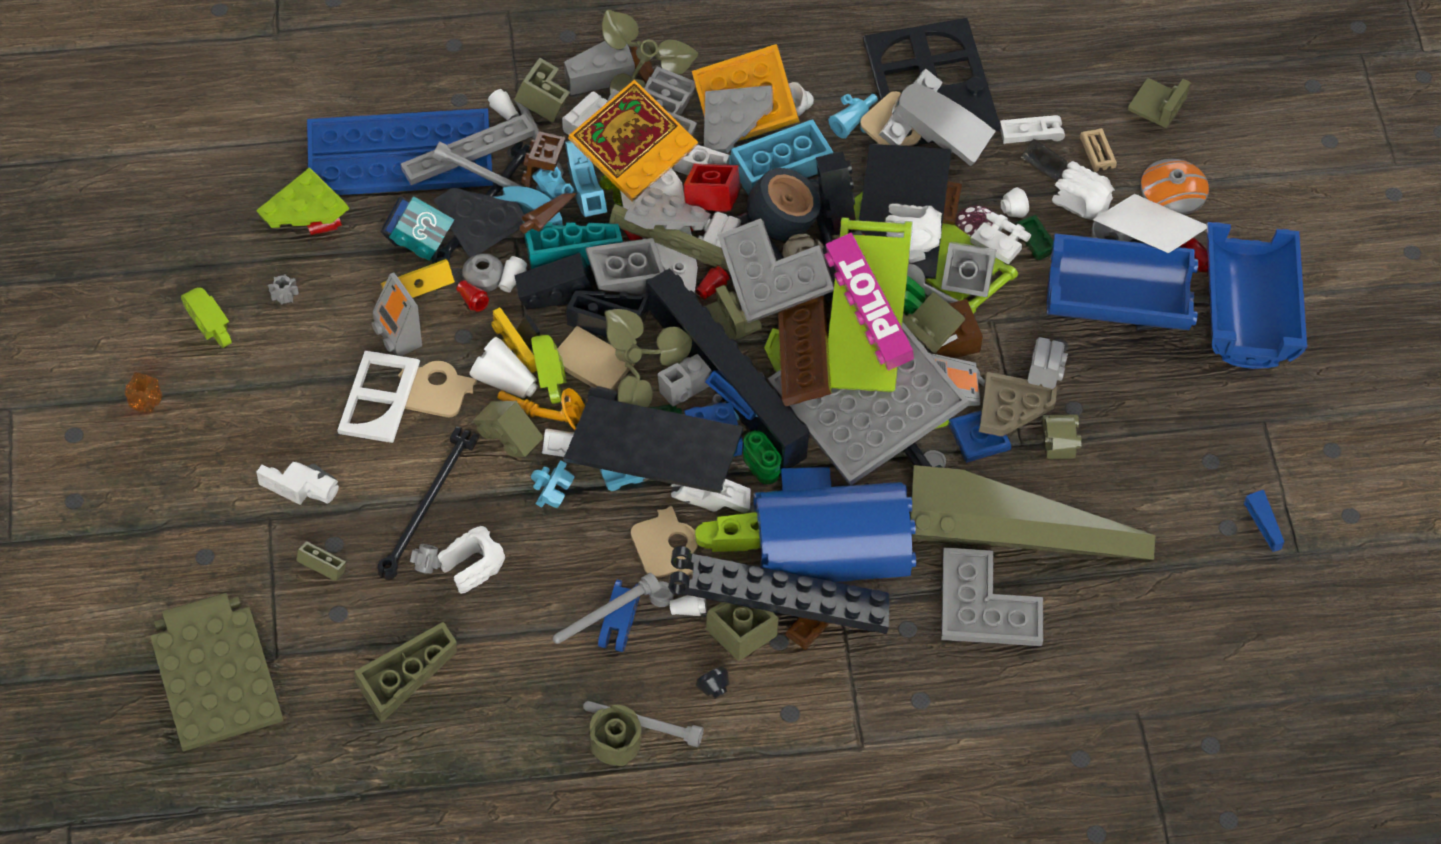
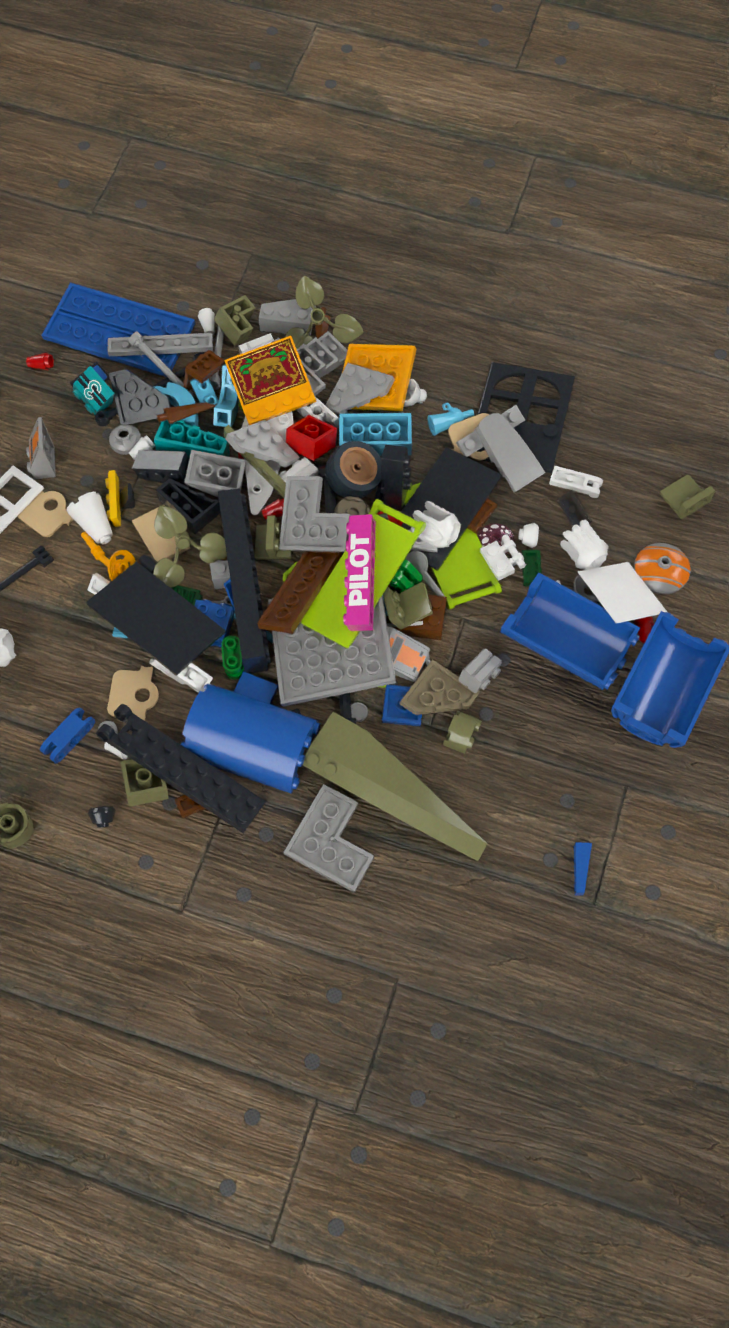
camera: 30 degrees right, 10 degrees up
(303, 202) = (31, 342): lime plate -> none
(430, 278) = (64, 429): yellow tile -> none
(474, 297) = (106, 454): red cone -> none
(510, 425) = (69, 560): olive brick -> none
(549, 366) = (124, 527): lime piece -> none
(558, 476) = (72, 622): medium azure hips -> none
(647, 585) = (92, 722): light grey piece -> none
(675, 384) = (202, 577): light grey brick -> none
(692, 735) = (65, 848): light grey piece -> none
(714, 535) = (166, 702): lime piece -> none
(968, 269) = (463, 573): light grey slope -> none
(1090, 152) = (616, 529): tan tile -> none

